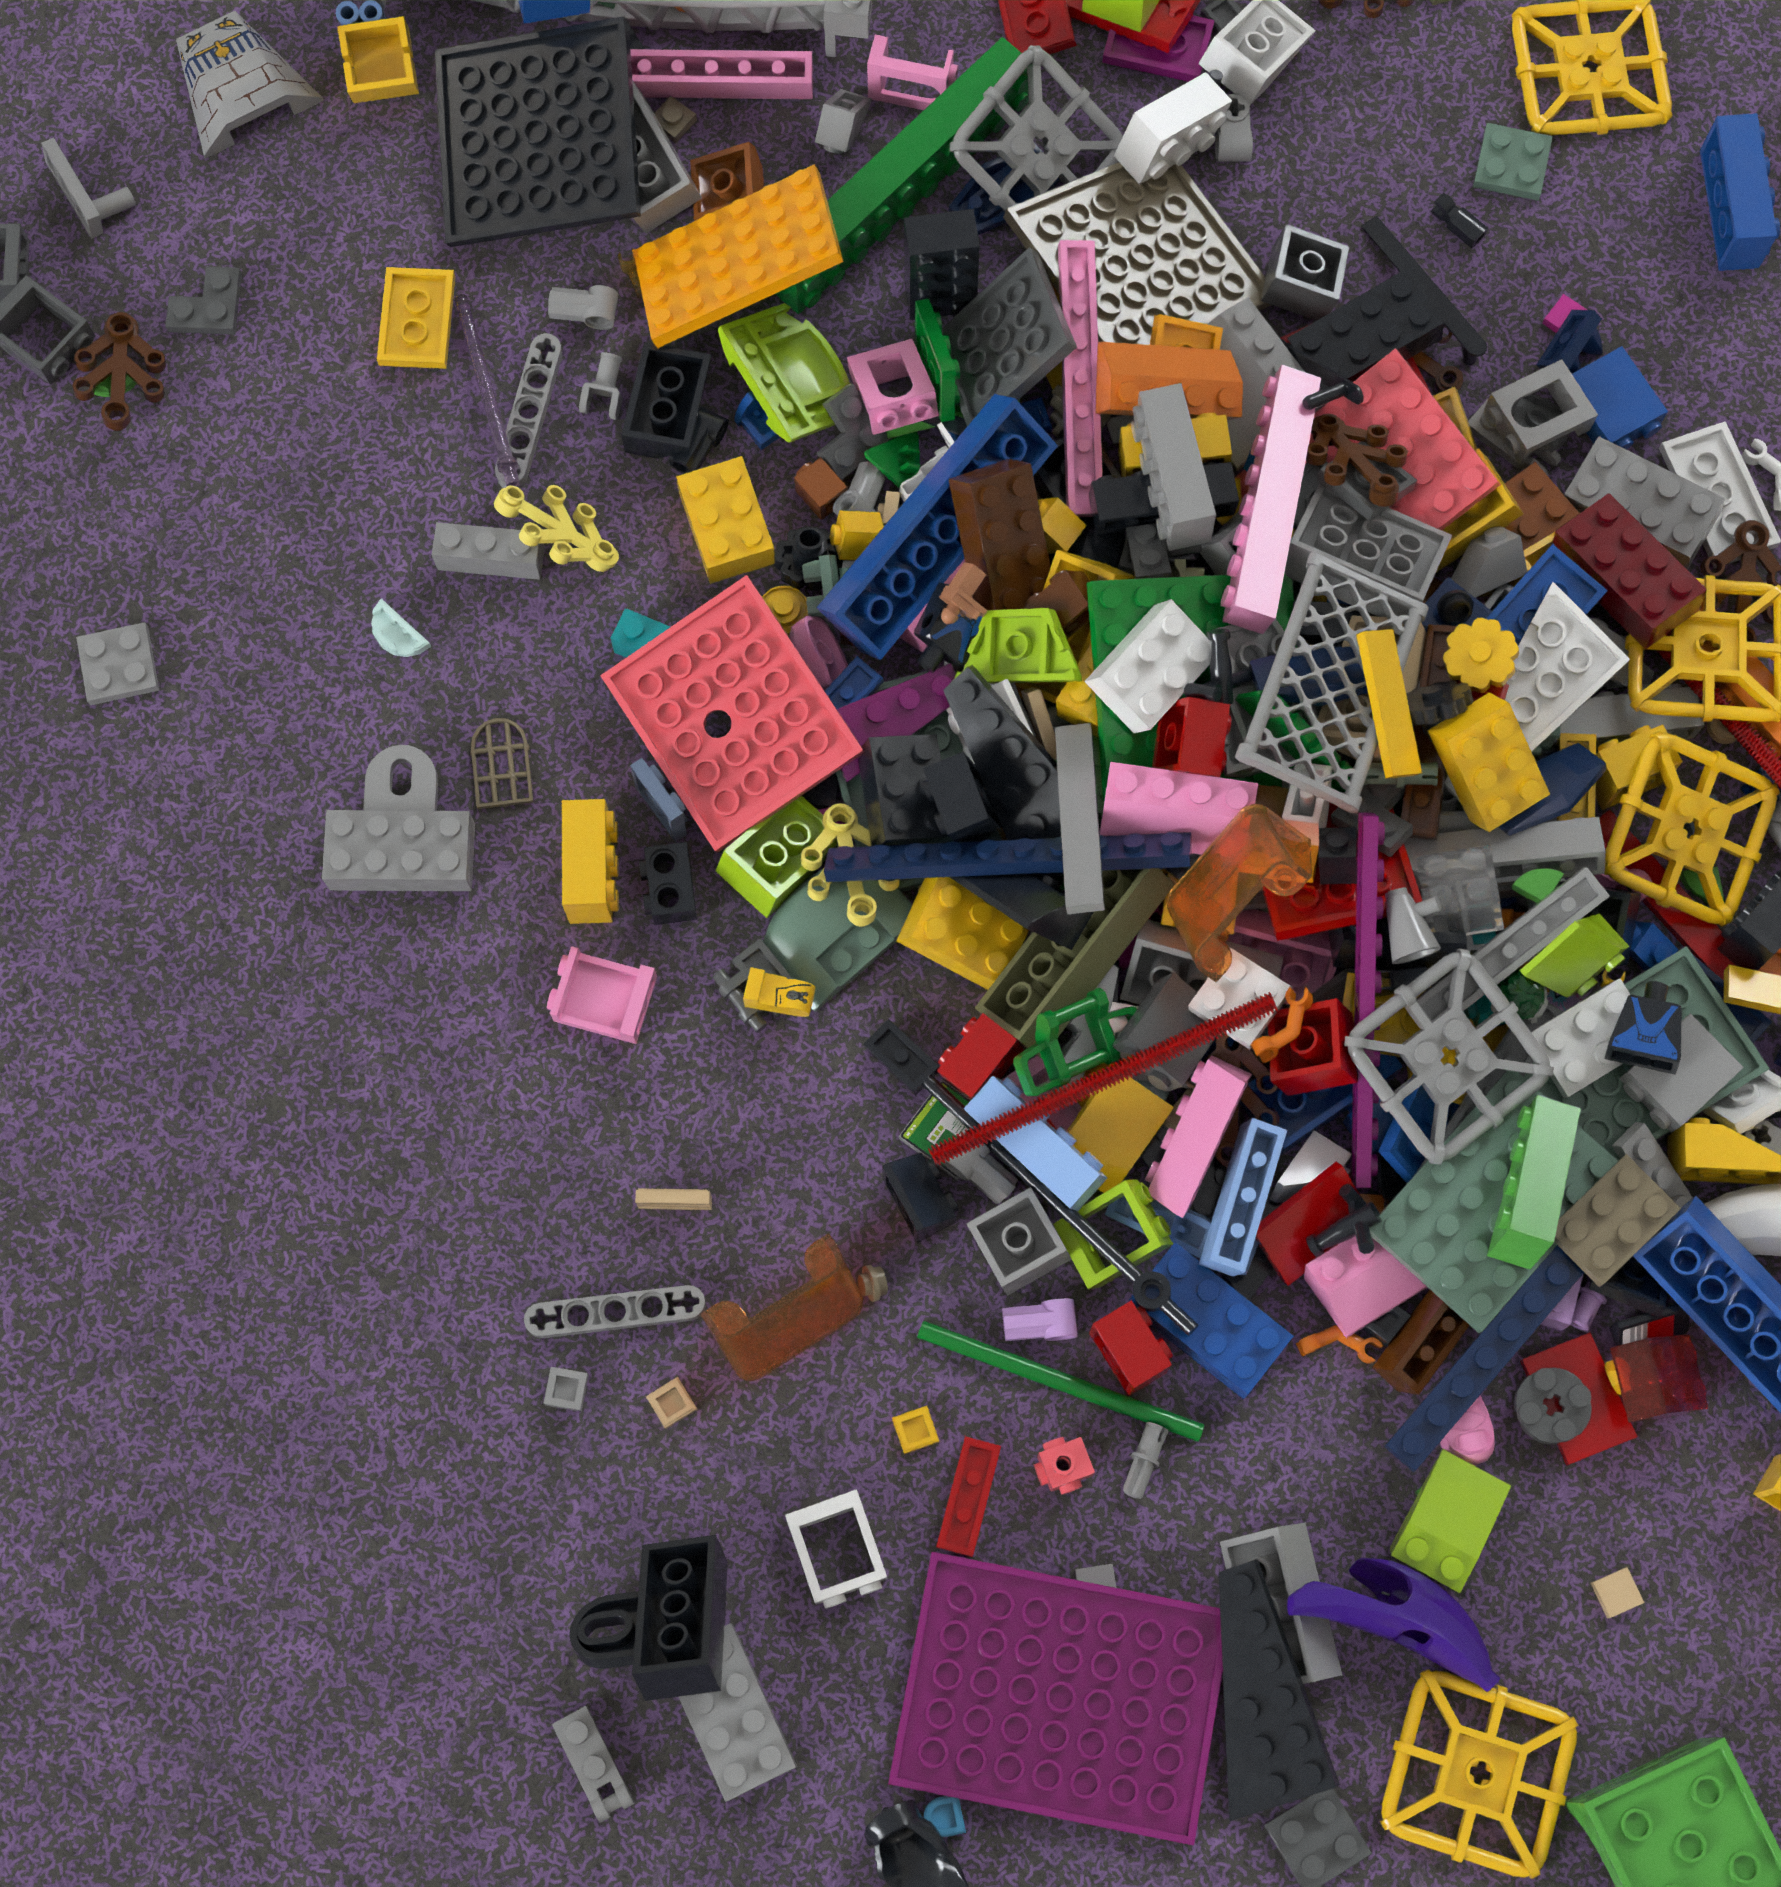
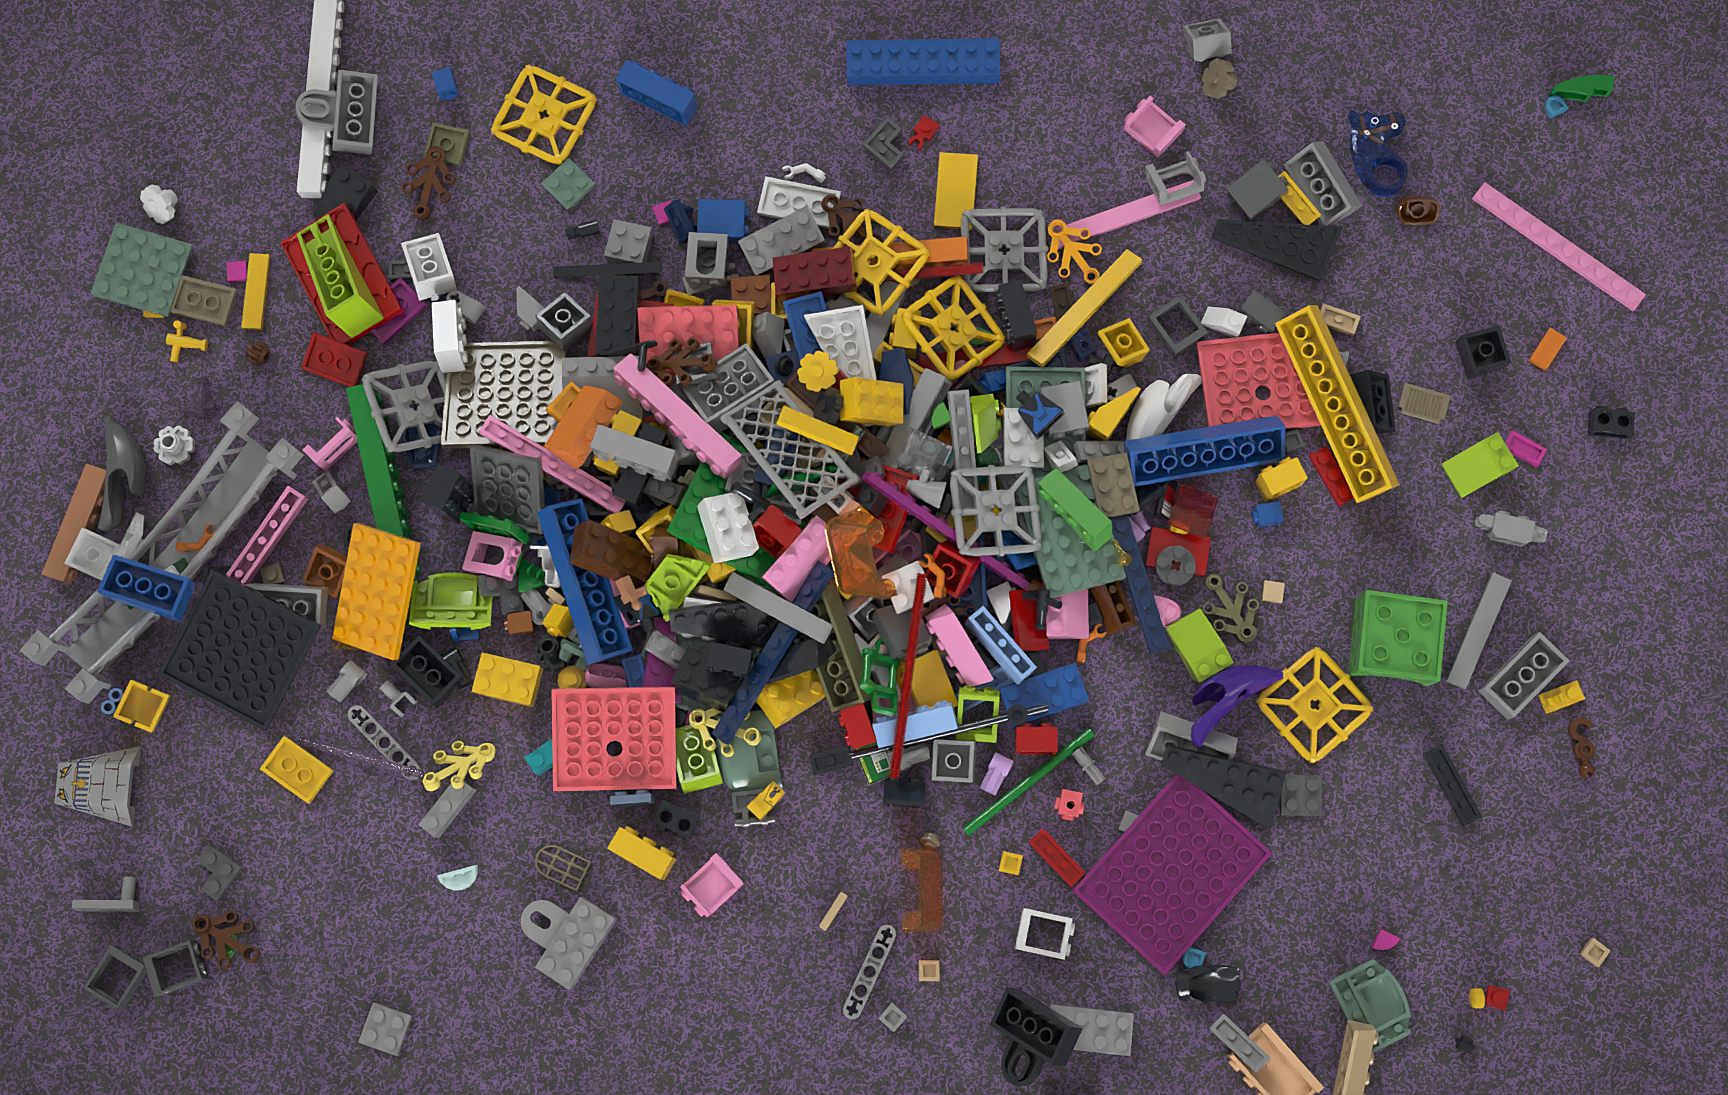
camera: 55 degrees left, 5 degrees up
(911, 703) = (665, 649): none -> light grey plate
(1290, 210) = (527, 309): none -> light grey slope
(1486, 291) = (628, 243): none -> light grey brick
(1510, 1307) = (1124, 558): none -> clear yellow hand
(1541, 1543) = (1232, 611): none -> olive plant
(1602, 1112) = (1060, 457): none -> white slope
(1736, 1506) = (1267, 514): none -> blue brick

